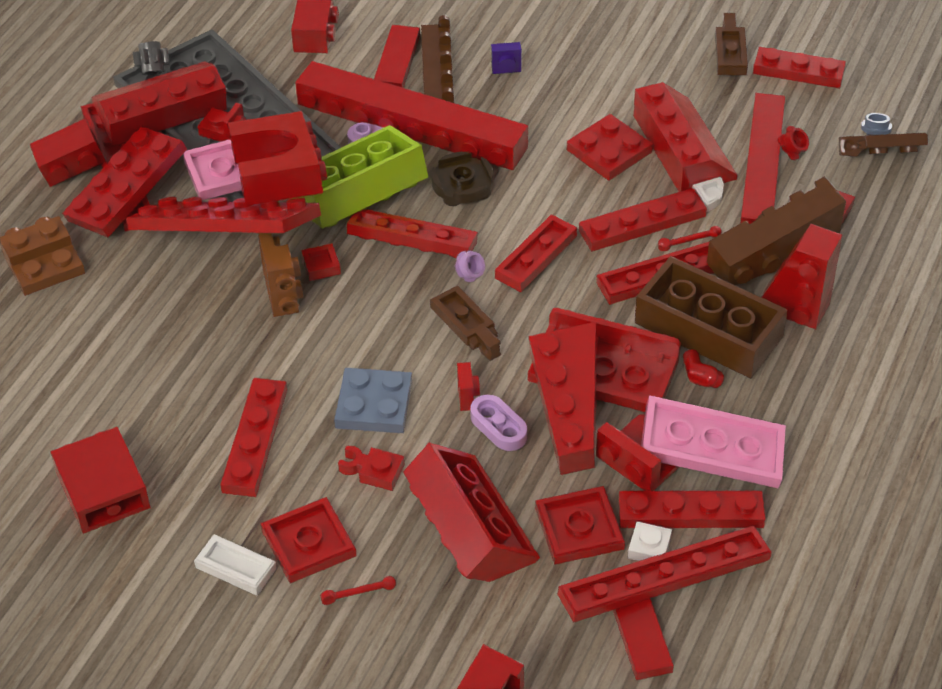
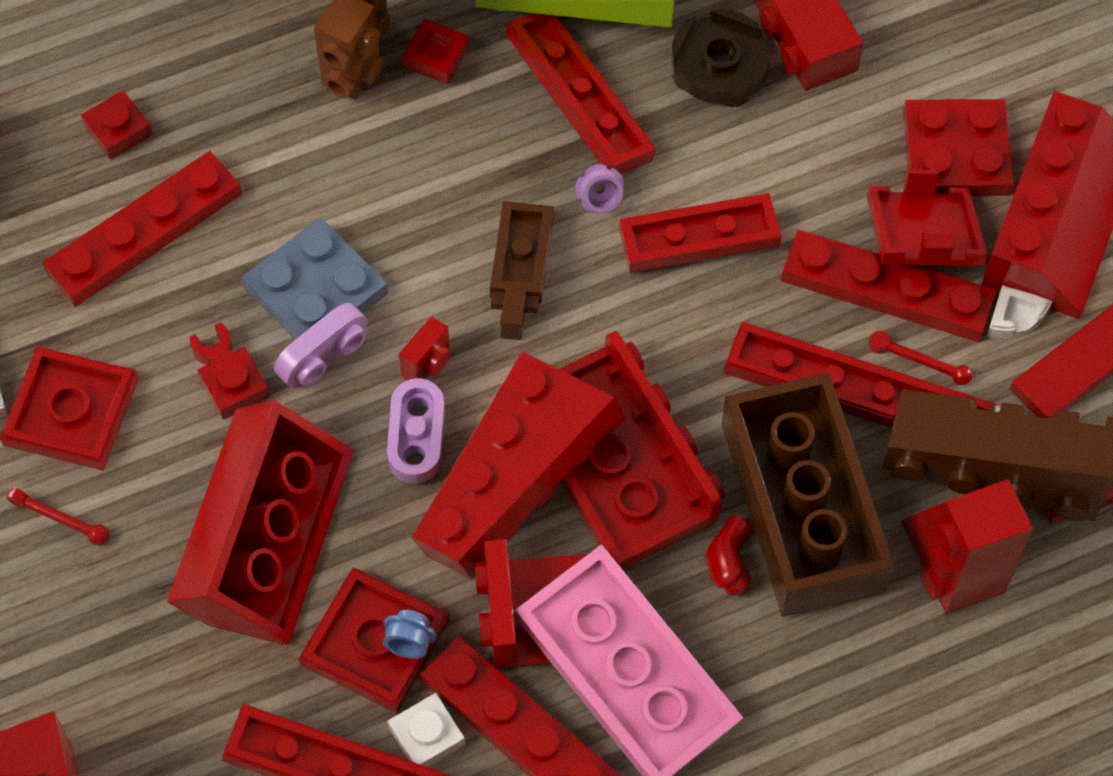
camera: 40 degrees right, 15 degrees up
(186, 401) = (116, 124): none -> red plate
(411, 429) = (310, 354): none -> lavender plate
(600, 502) = (408, 634): none -> medium blue plate
(636, 181) = (926, 225): none -> red piece

